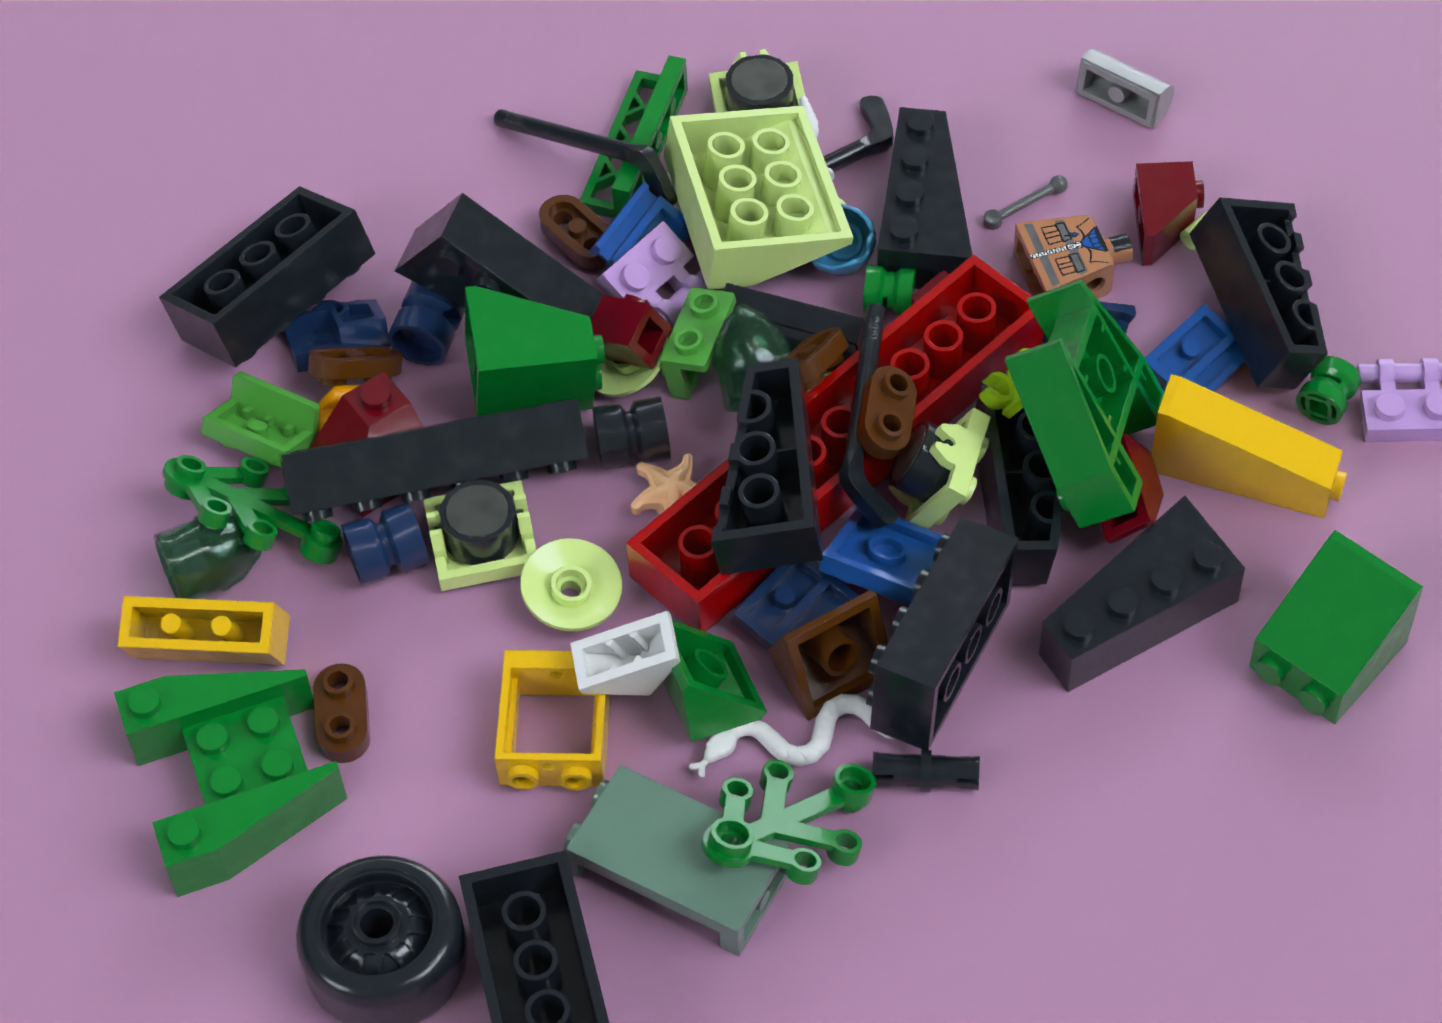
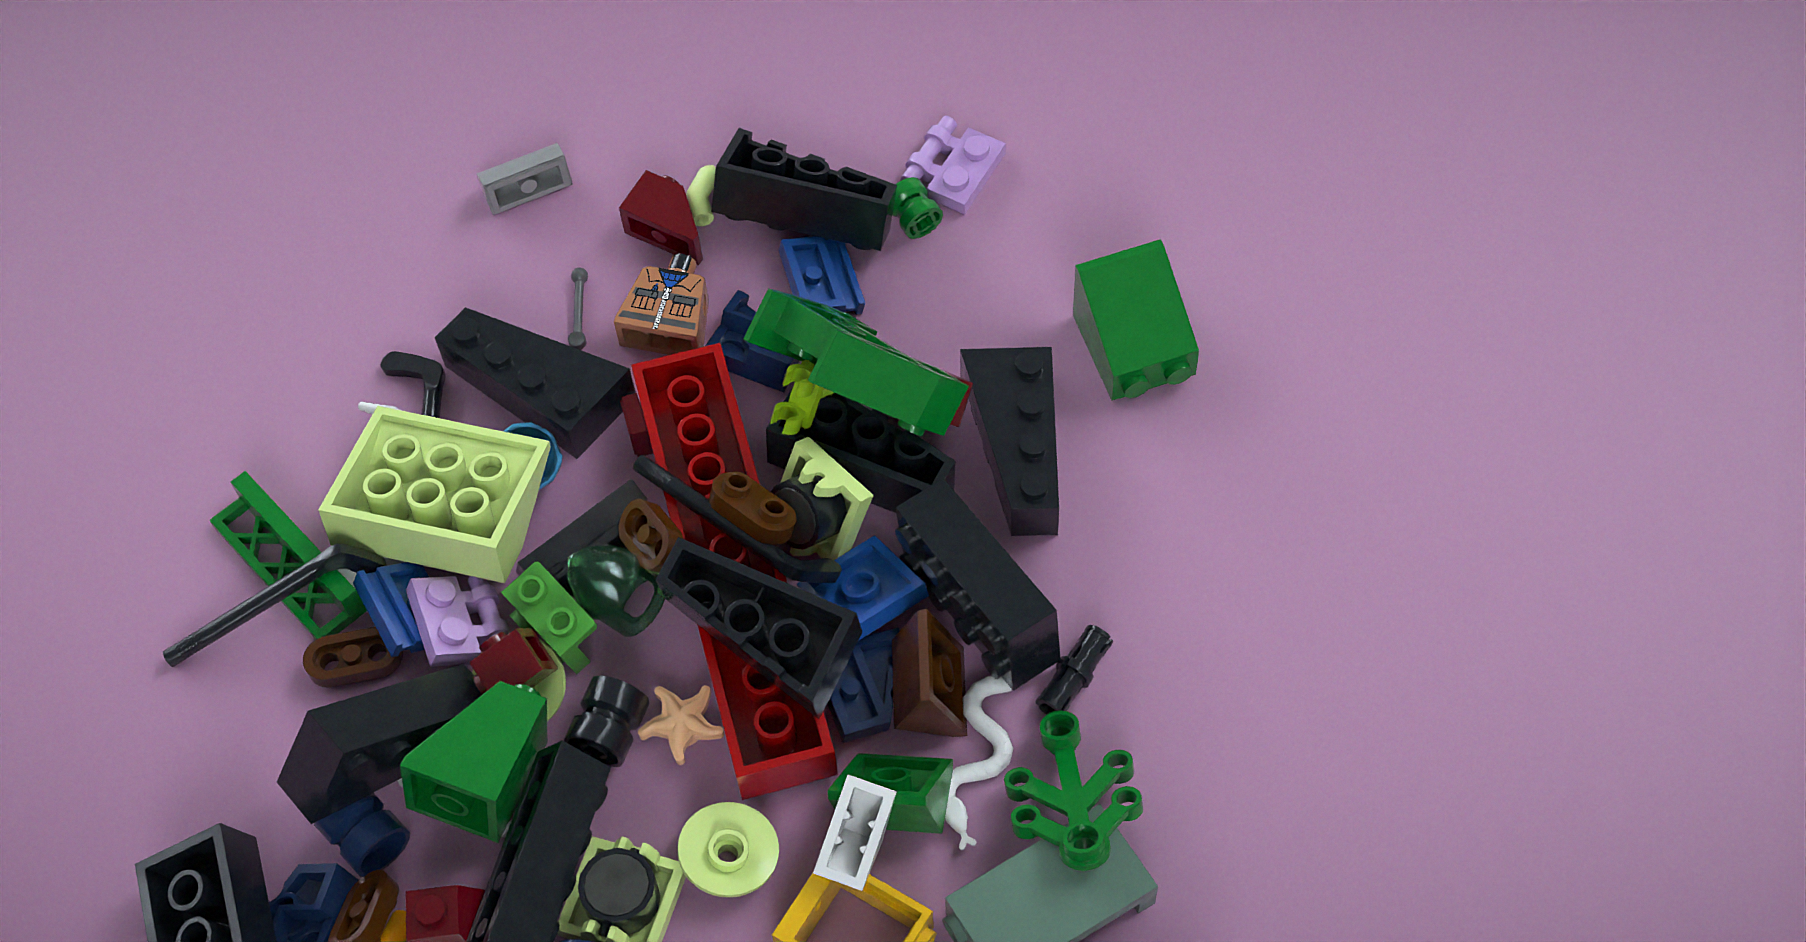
camera: 60 degrees left, 5 degrees up
(756, 84) = (317, 439): piece -> none
(889, 288) = (600, 449): green wheel -> none
(1242, 451) = (937, 290): yellow slope -> none

